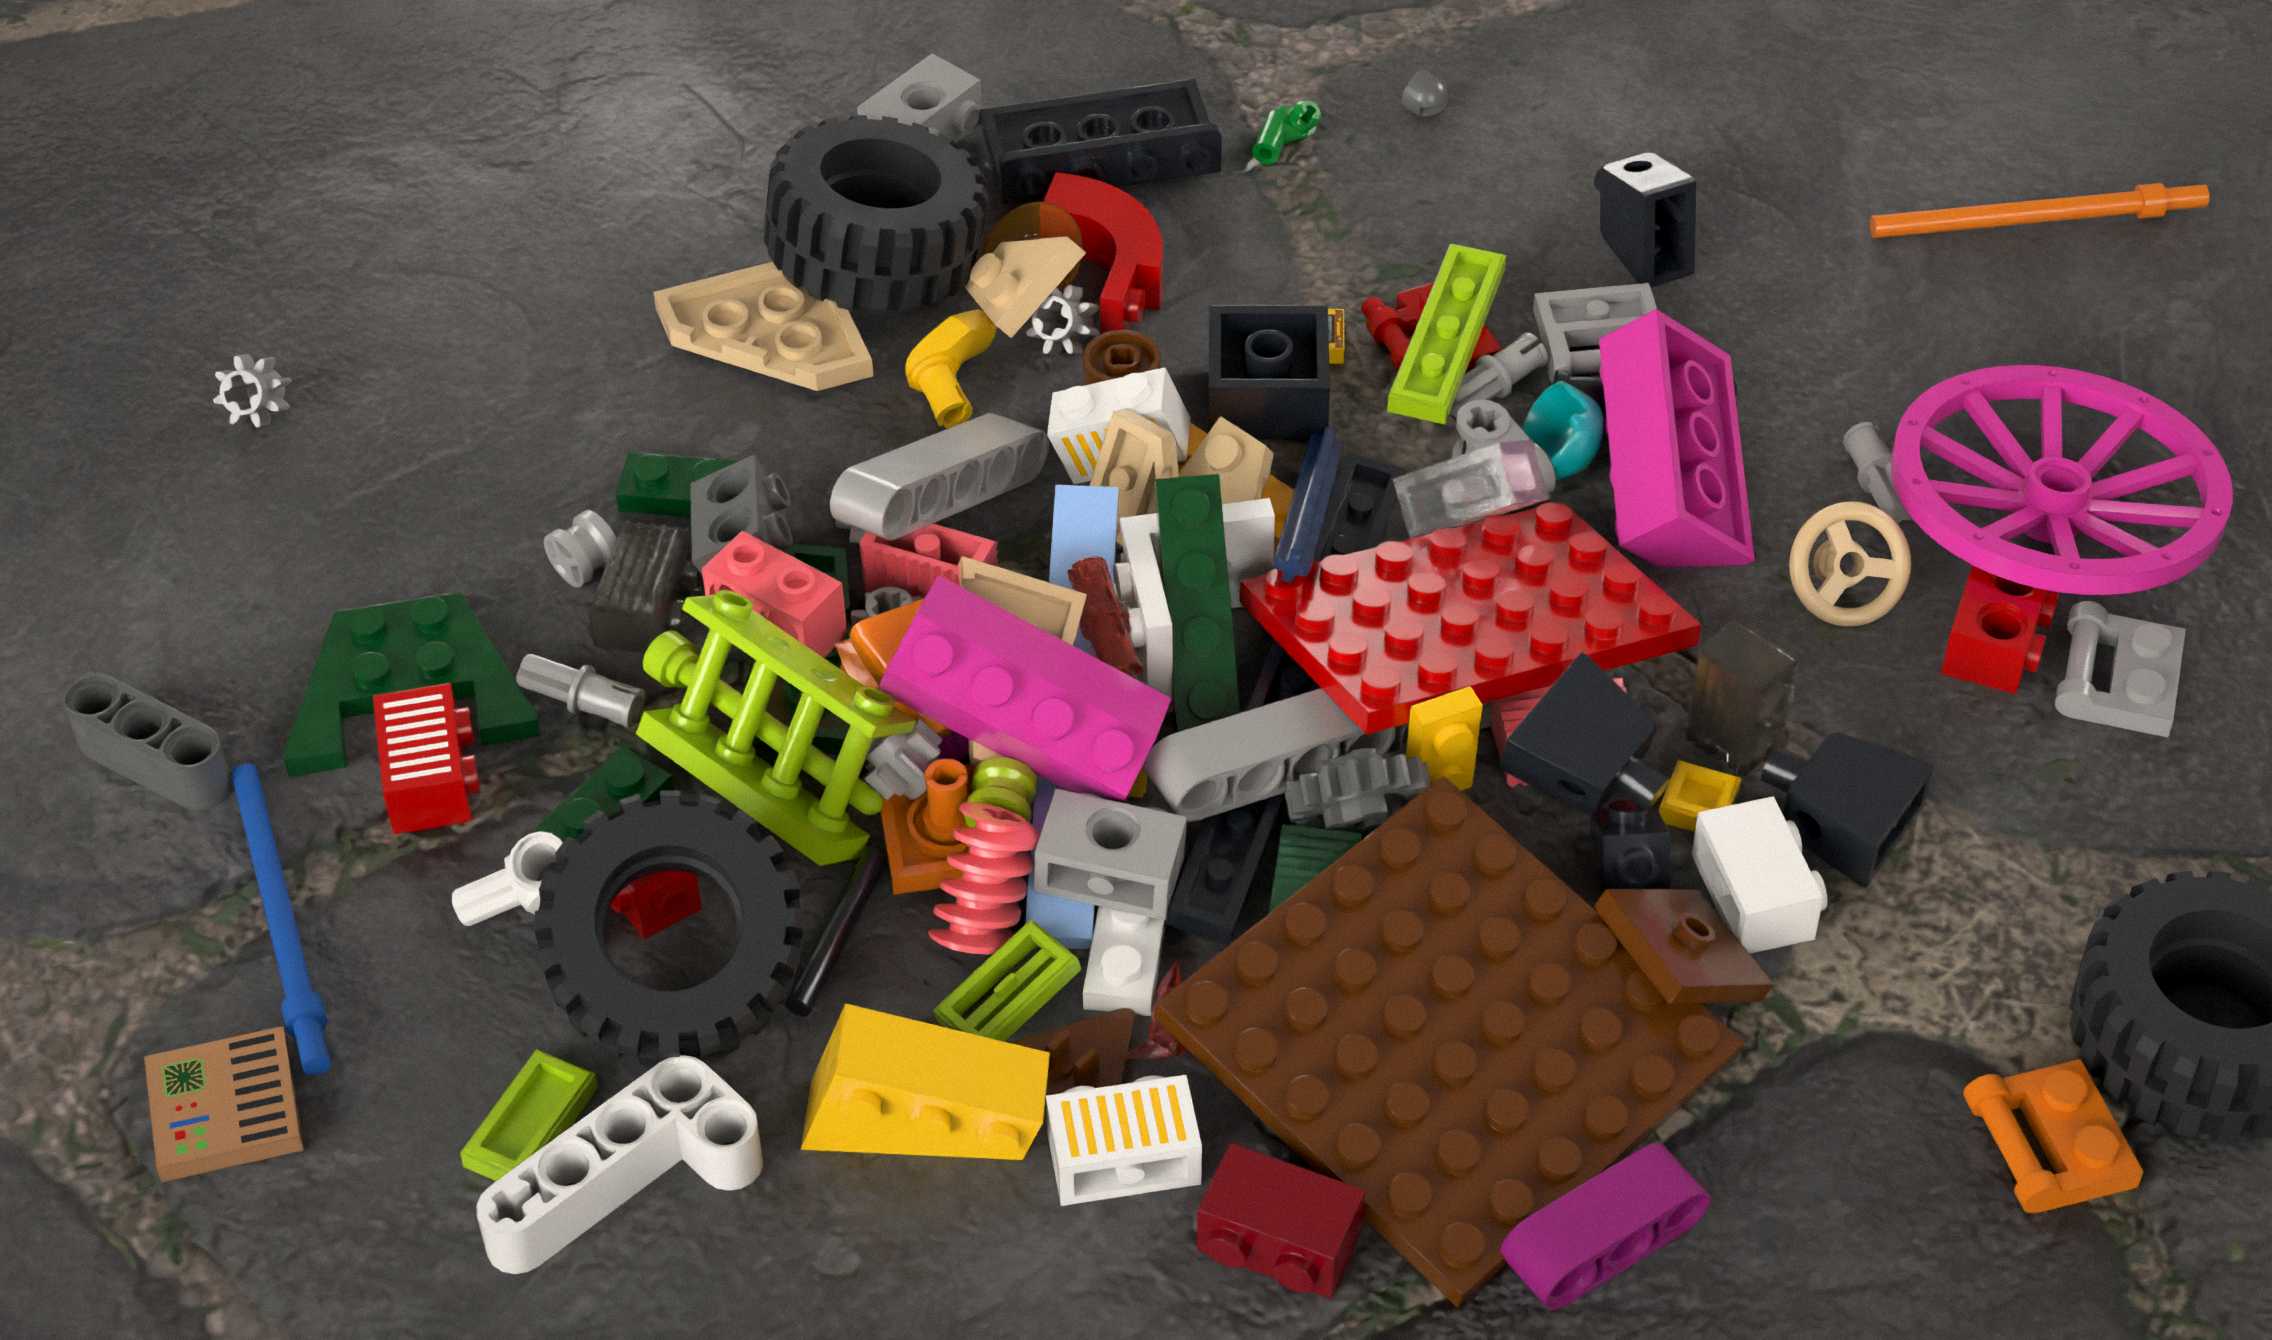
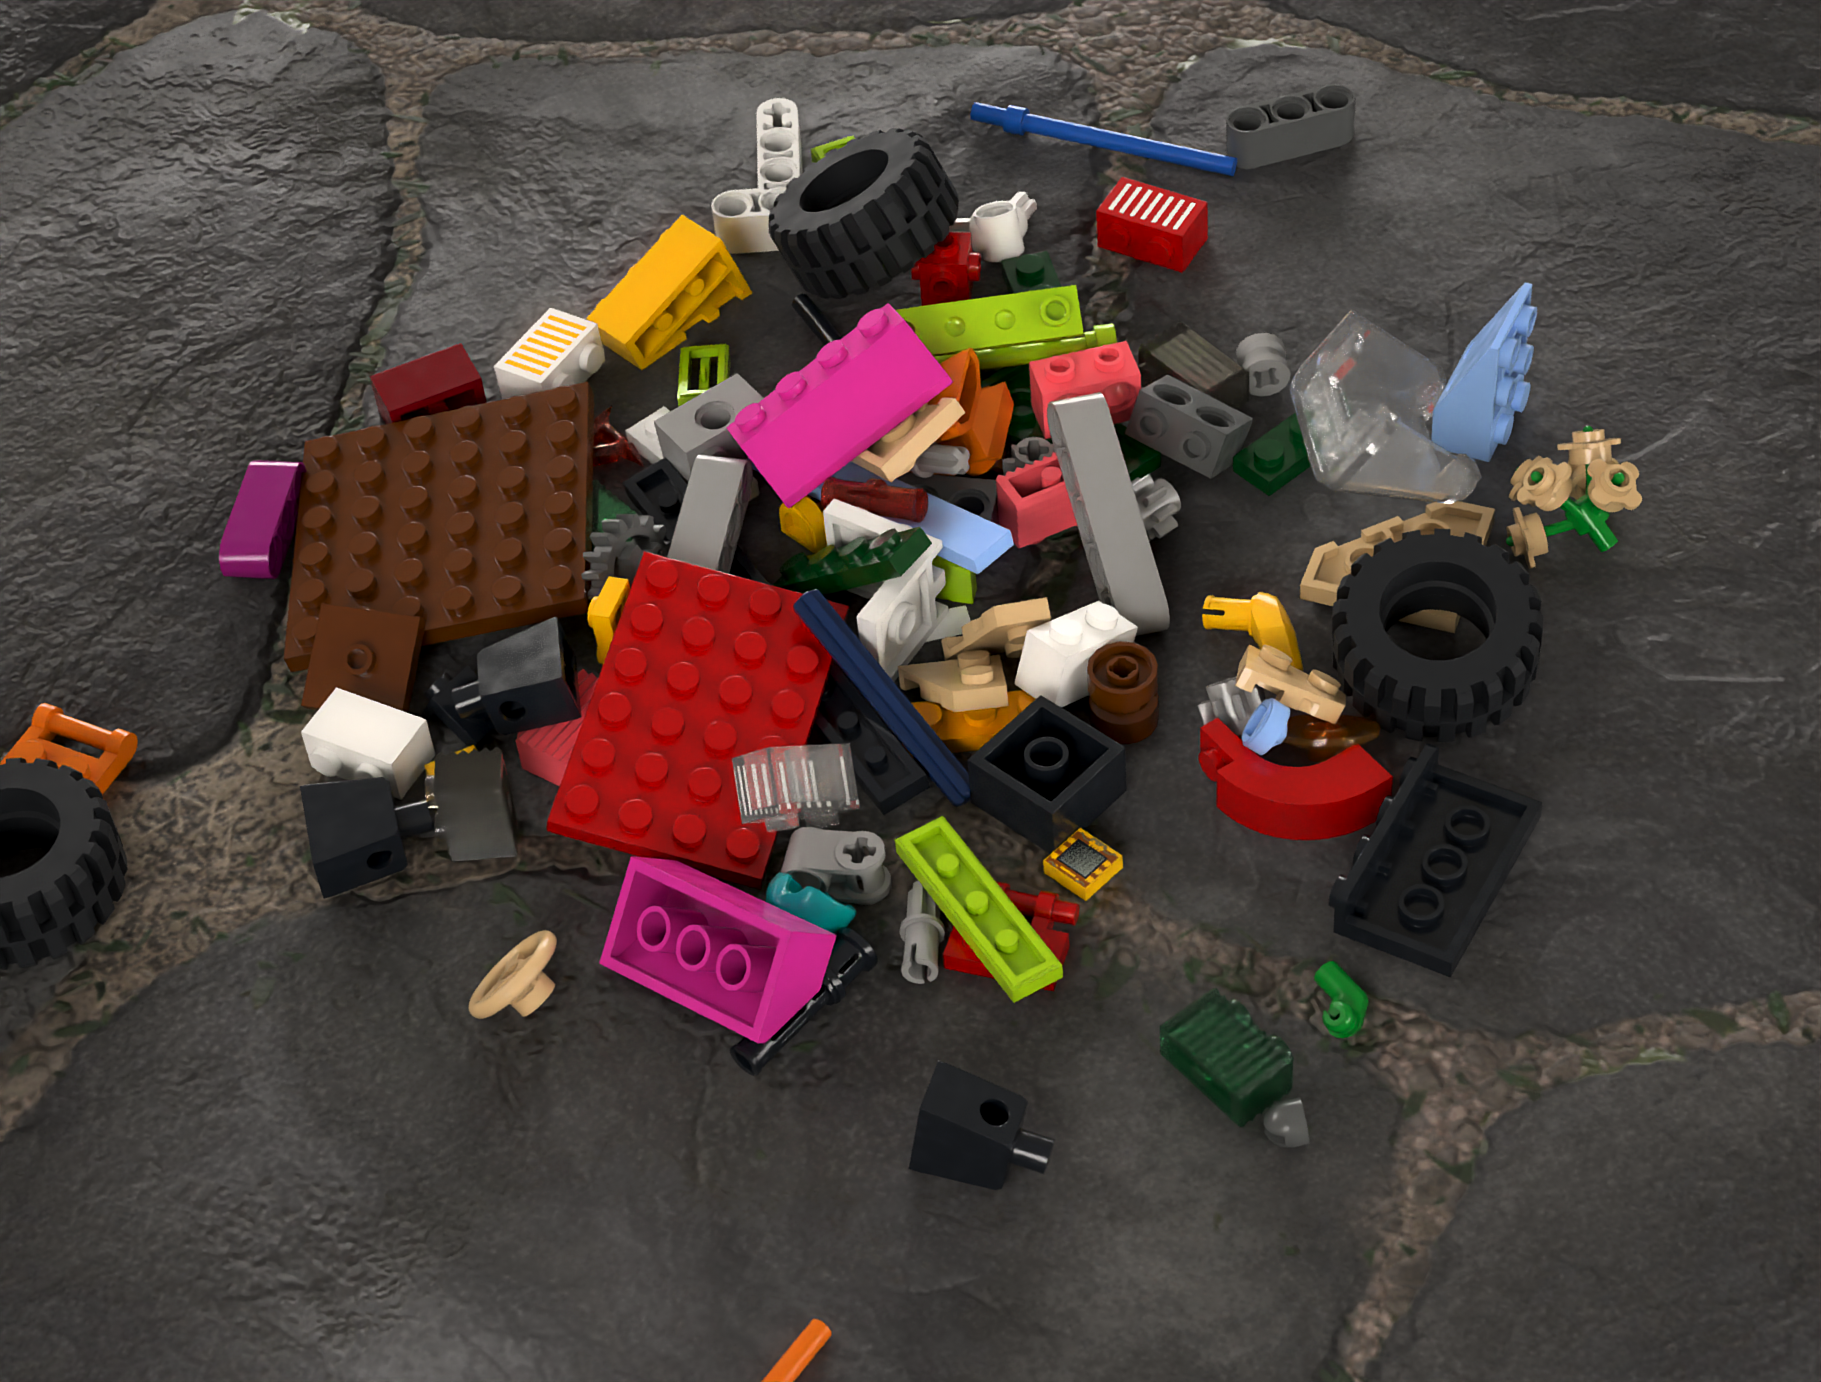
camera: 135 degrees right, 0 degrees up
(222, 1104) = (990, 73): medium nougat tile -> none
(235, 393) = (1583, 275): light grey gear -> none
(399, 650) = (1256, 268): dark green wing -> none
(500, 330) = (1488, 383): none -> light blue slope
(582, 689) = (1143, 313): light grey axle -> none
(634, 211) = (1589, 477): none -> tan plant
(691, 355) = (1365, 417): none -> clear windscreen
(932, 96) = (1573, 768): light grey brick -> none
(989, 880) = (770, 363): coral piece -> none
(1086, 1051) = (633, 391): reddish brown piece -> none
(1099, 243) = (1266, 726): none -> light blue tile
(1409, 147) = (1228, 1056): none -> clear green brick
(1583, 317) = (907, 1042): light grey plate -> none
(1874, 466) = (576, 1087): light grey axle -> none
(1996, 631) = (381, 1034): red brick -> none
(2054, 493) = (418, 1141): dark pink wheel -> none
(2142, 671) = (257, 1096): light grey plate -> none

